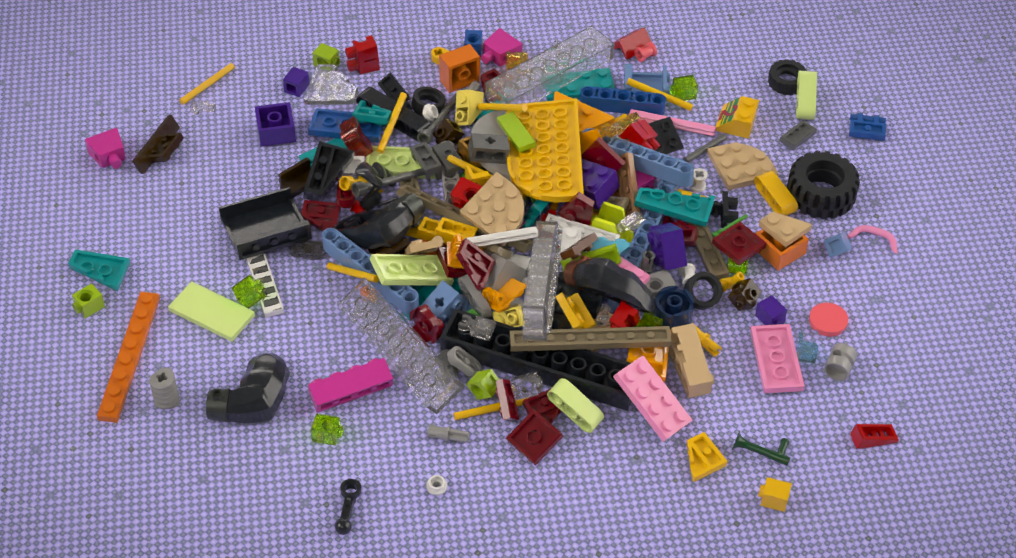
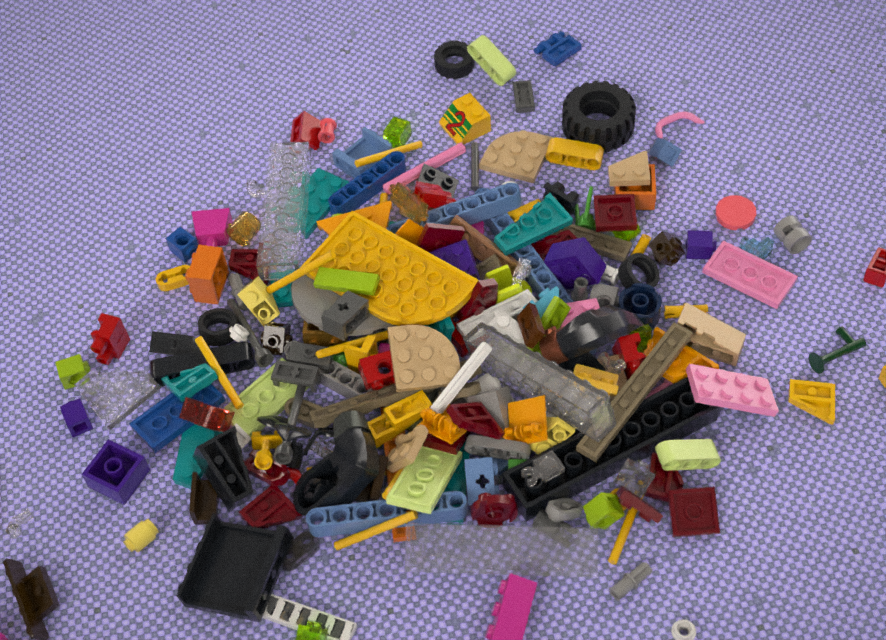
camera: 45 degrees left, 5 degrees up
(245, 166) = (140, 535): none -> light yellow brick

